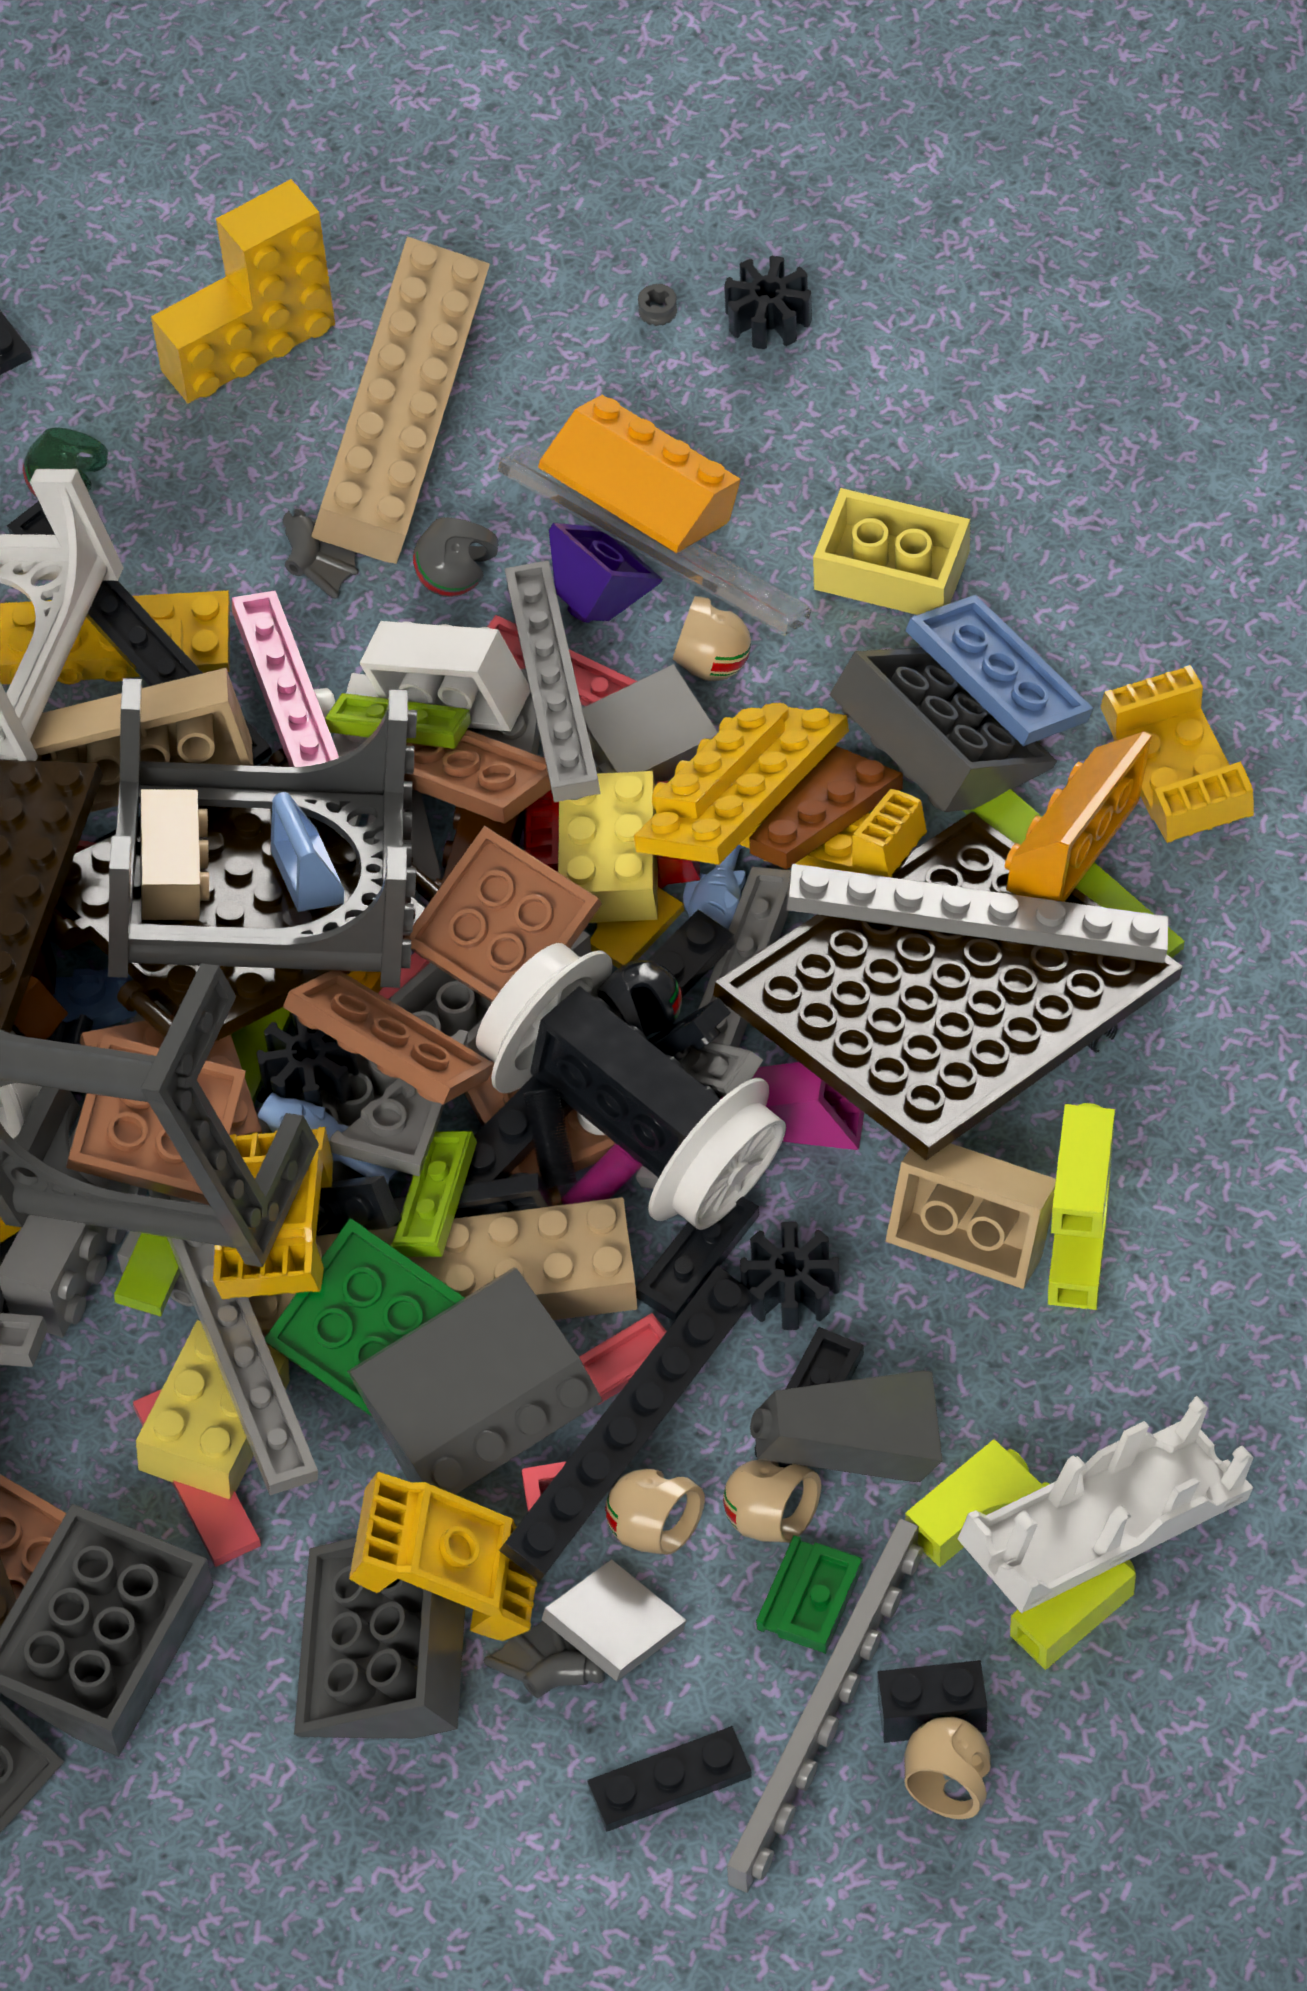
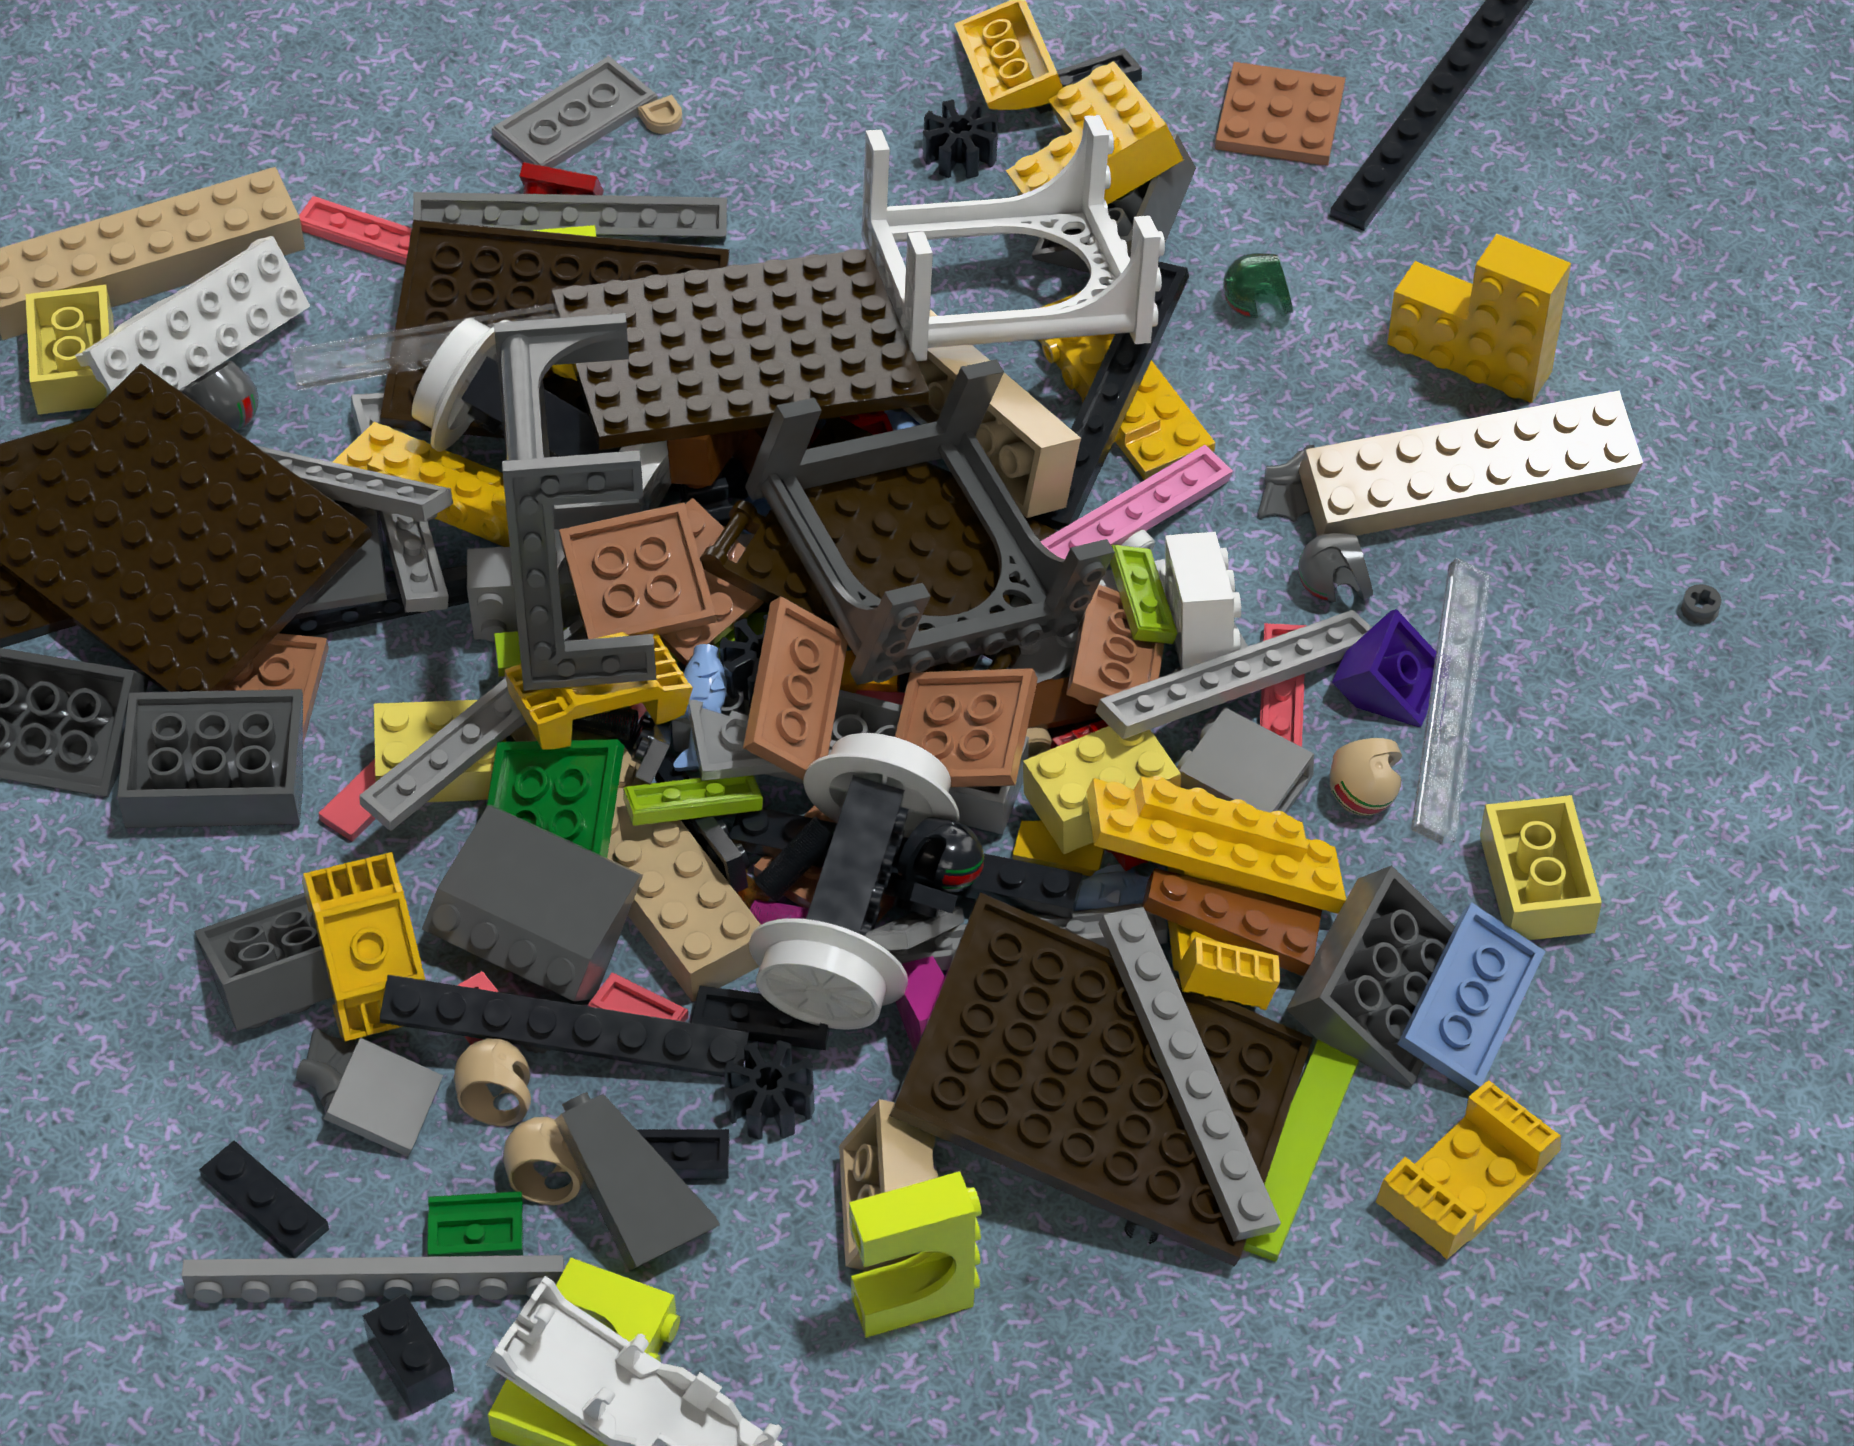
camera: 60 degrees right, 5 degrees down
(173, 854) = (891, 483): brick -> none
(302, 857) = (951, 567): light blue tile -> none
(641, 474) = (1501, 658): light orange slope -> none
(768, 302) = (1754, 676): black gear -> none
(951, 1749) = (355, 1374): tan helmet -> none
(1079, 820) = (1334, 1116): light orange slope -> none

